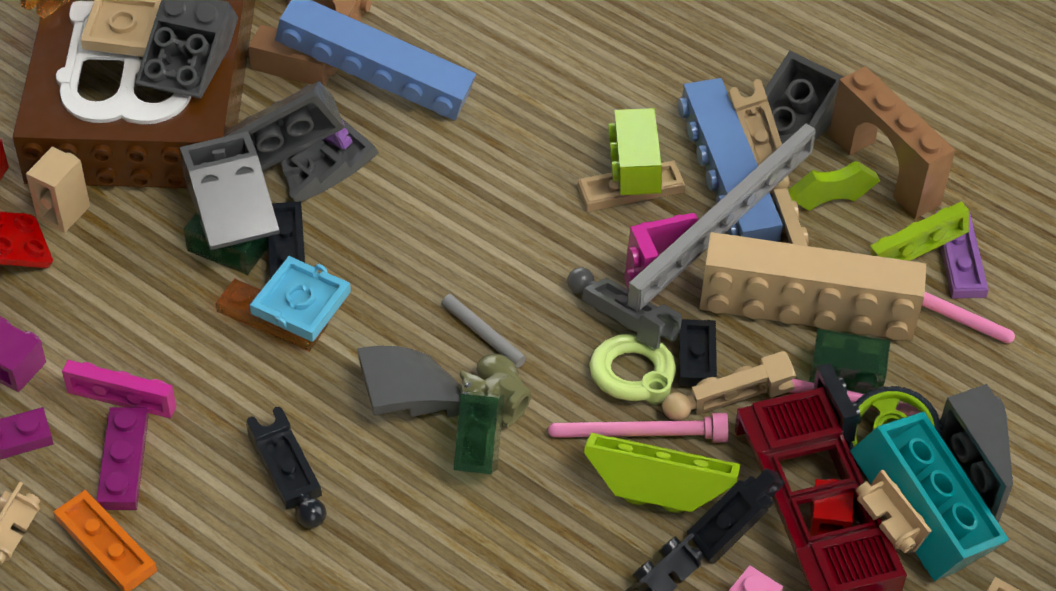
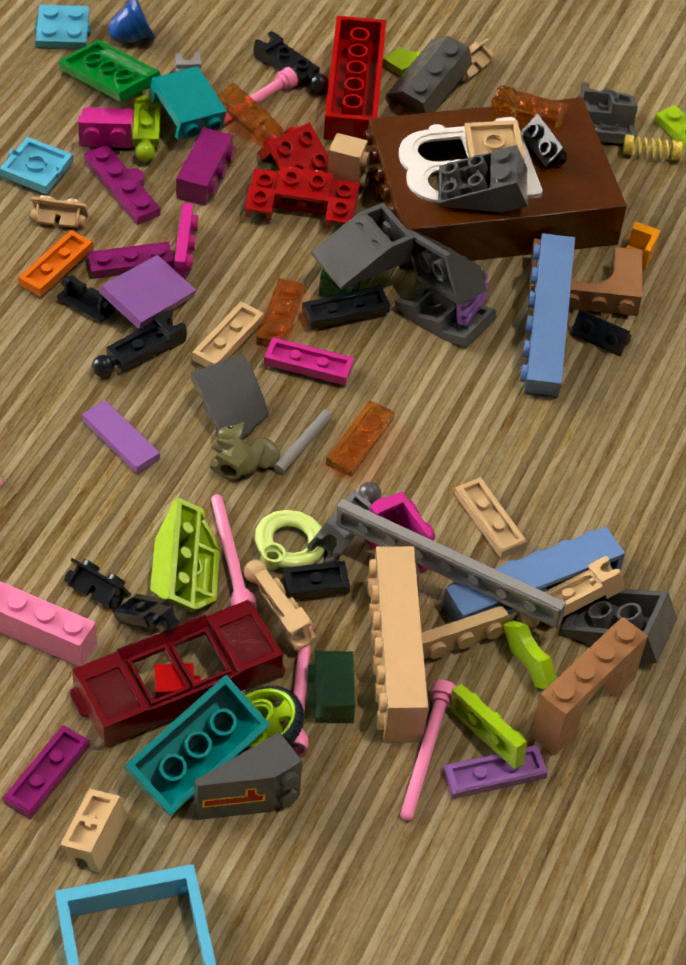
camera: 75 degrees right, 0 degrees up
(80, 240) = (304, 192): none -> red bracket
(185, 515) = (85, 299): none -> black hinge
(204, 439) = (147, 291): none -> medium lavender tile
(299, 371) = (228, 335): none -> tan plate
(300, 298) = (285, 316): medium azure plate -> none
(366, 298) = (308, 361): none -> dark pink plate
(404, 24) = (600, 332): none -> black hinge
(431, 514) = (120, 436): none -> medium lavender tile
(478, 432) = (184, 438): clear green brick -> none
(497, 273) = (360, 438): none -> clear orange plate
(635, 152) = (516, 505): lime brick -> none
(835, 389) = (273, 668): black plate -> none
(903, 525) = (169, 702): tan hinge -> none

